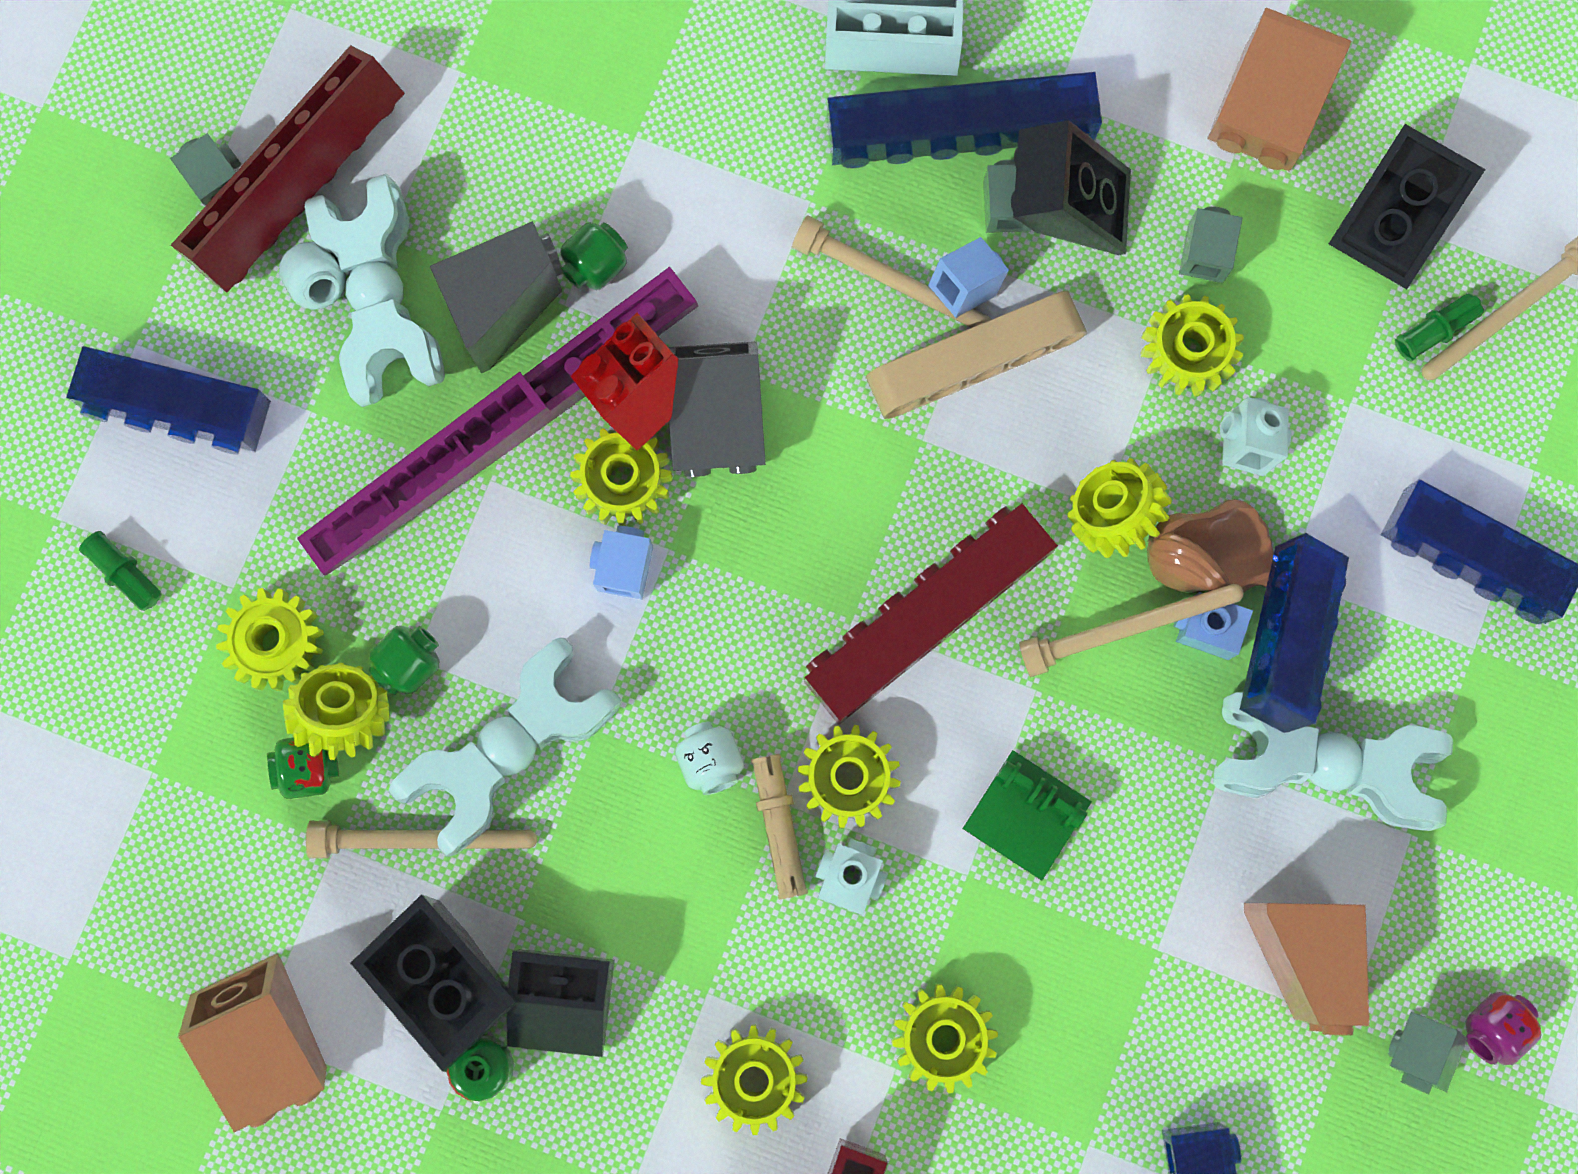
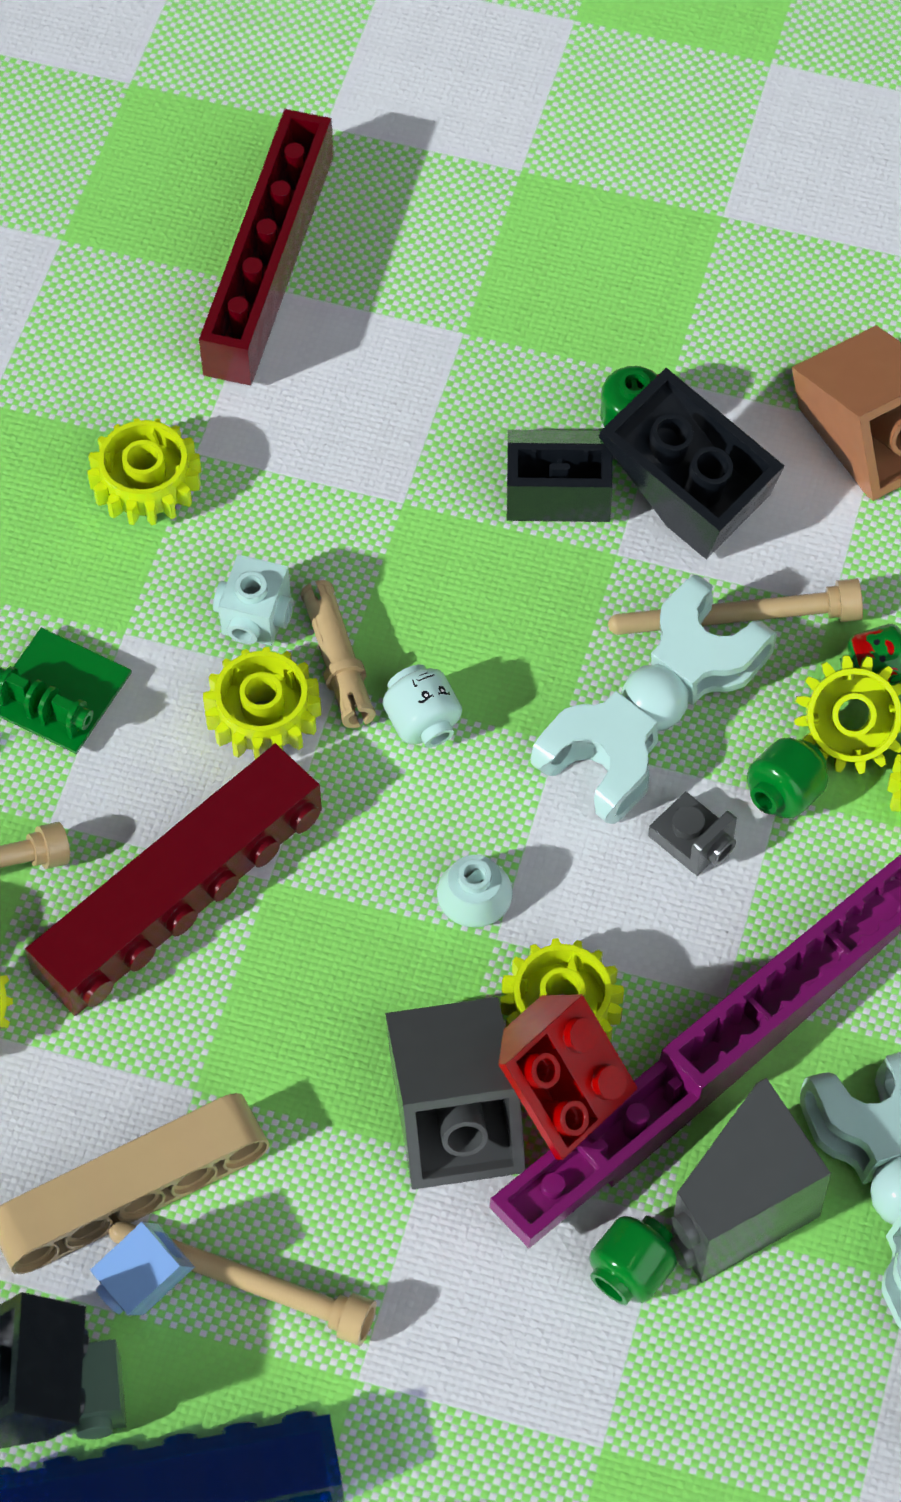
camera: 175 degrees right, 20 degrees down
(491, 622) = (694, 833): none -> dark grey bracket
(622, 562) = (548, 901): light blue brick -> none
(669, 593) = (474, 891): none -> light aqua cone
(748, 1106) = (344, 419): neon yellow gear -> none

